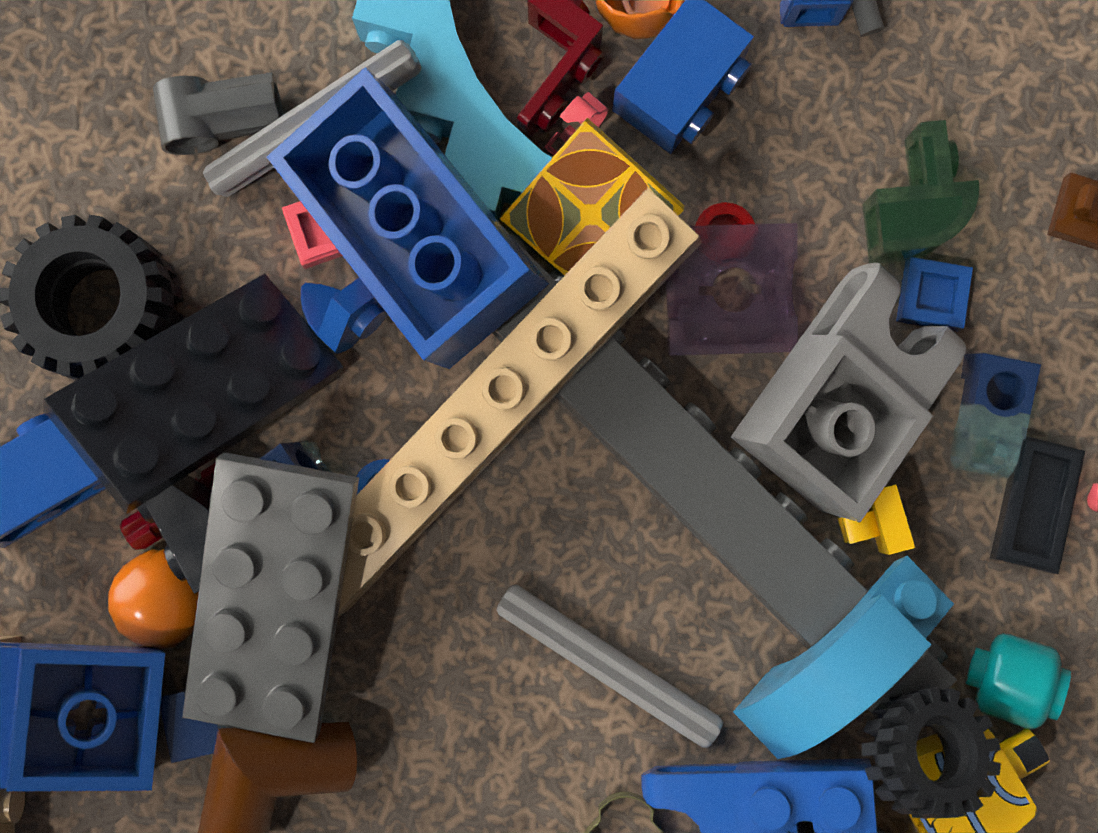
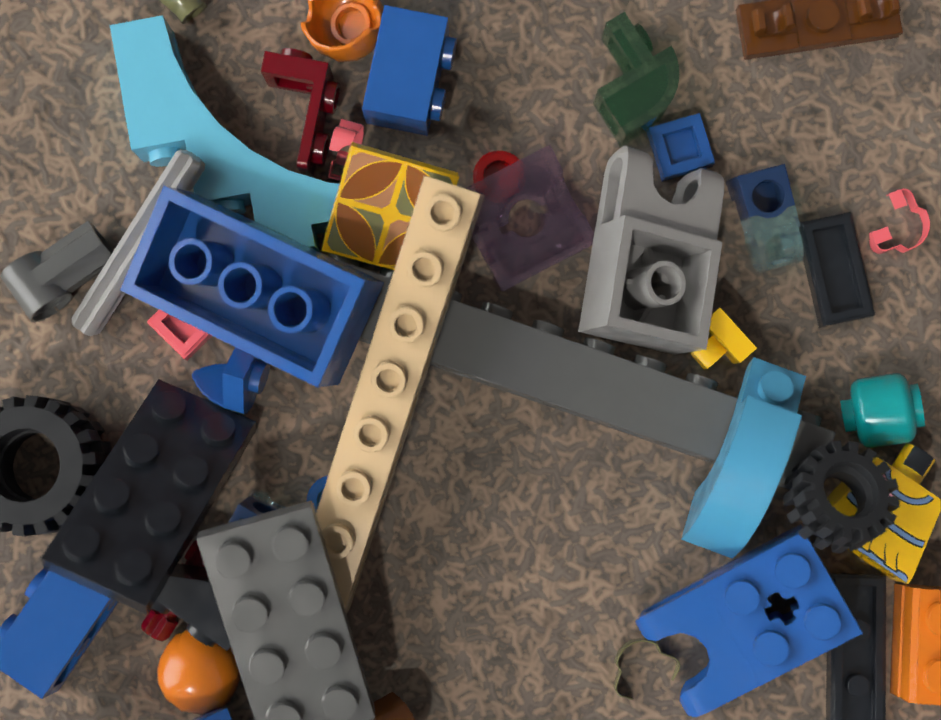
camera: 25 degrees left, 0 degrees up
(610, 666) = (571, 550): light grey axle -> none

